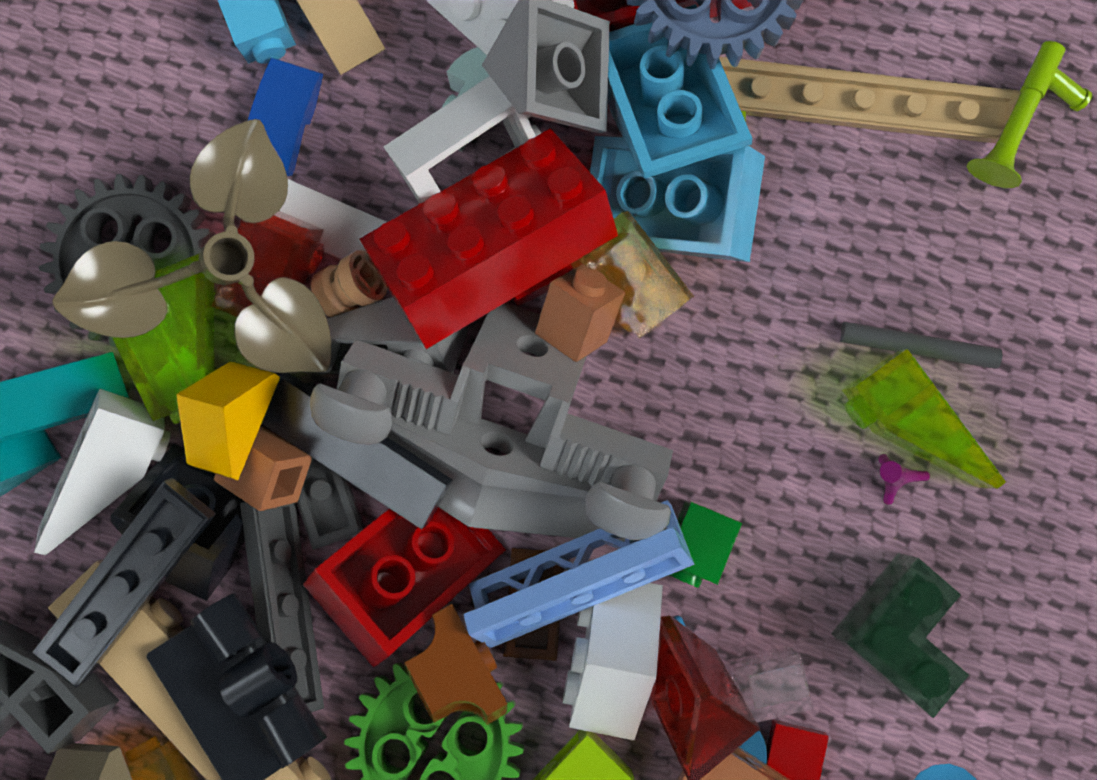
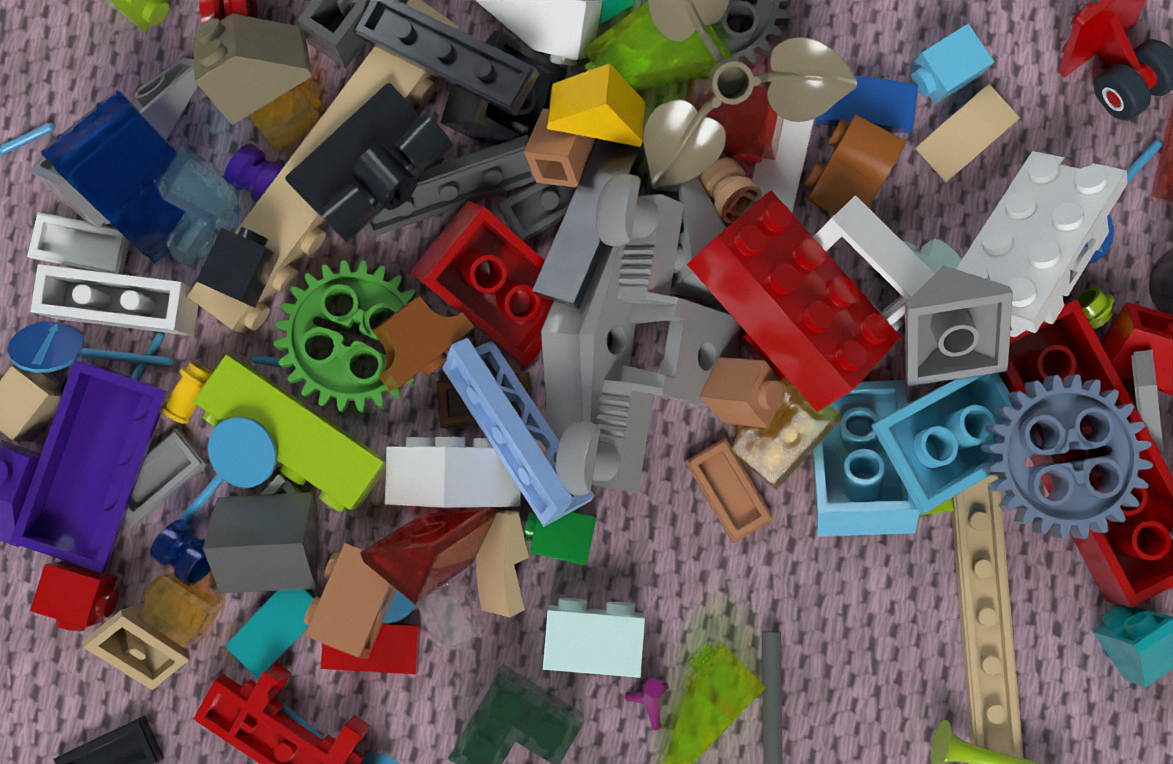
camera: 85 degrees right, 0 degrees up
(349, 141) = (856, 166): none -> dark orange brick
(682, 349) = (729, 490): none -> nougat tile
(724, 624) = (495, 566): none -> tan slope
(822, 528) = (594, 638): none -> light aqua brick

